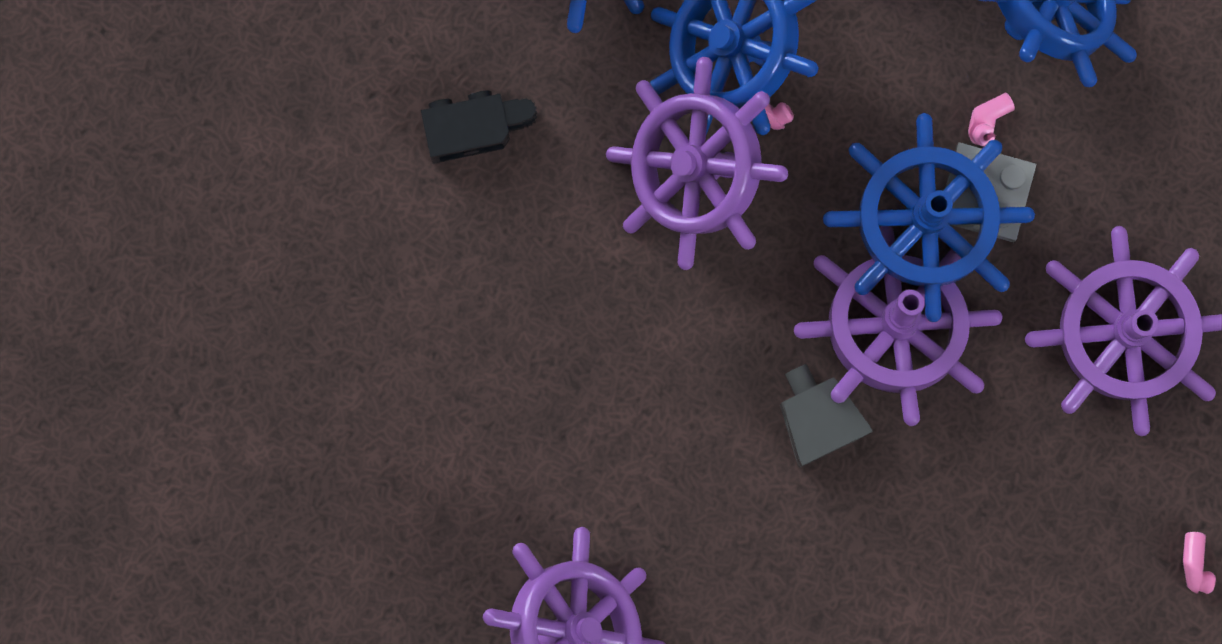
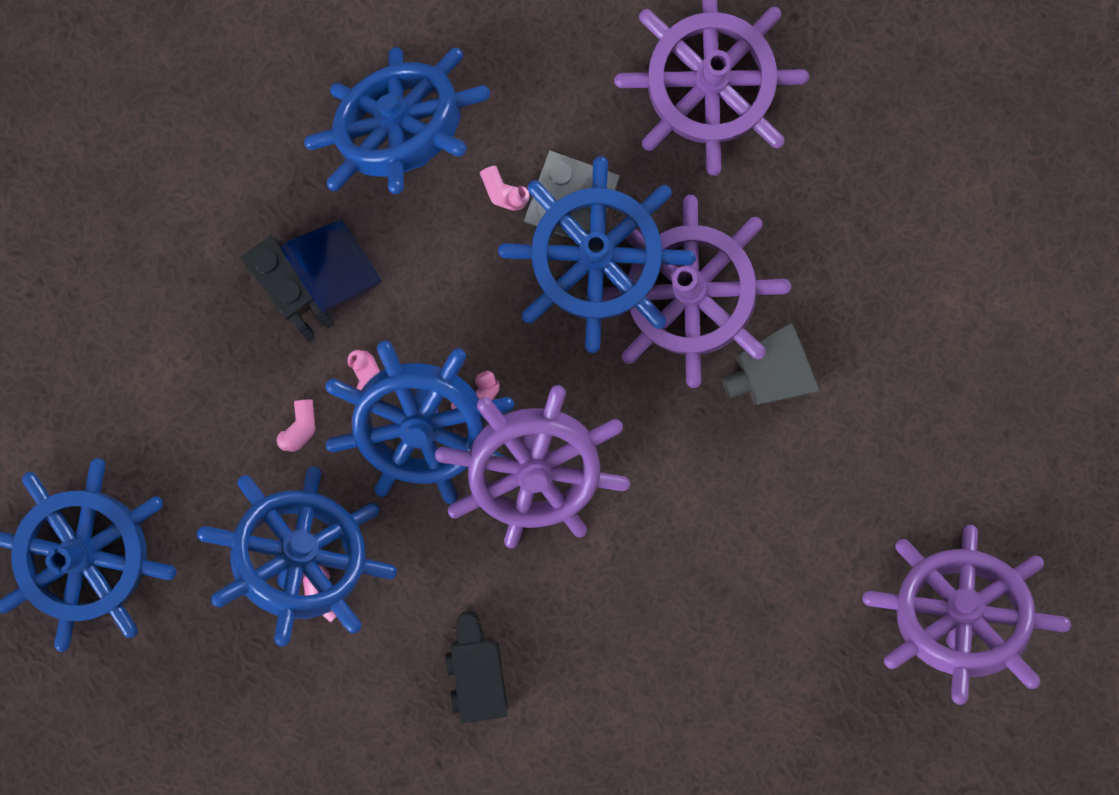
camera: 85 degrees left, 5 degrees up
(1193, 564) = (925, 42): bright pink arm -> none

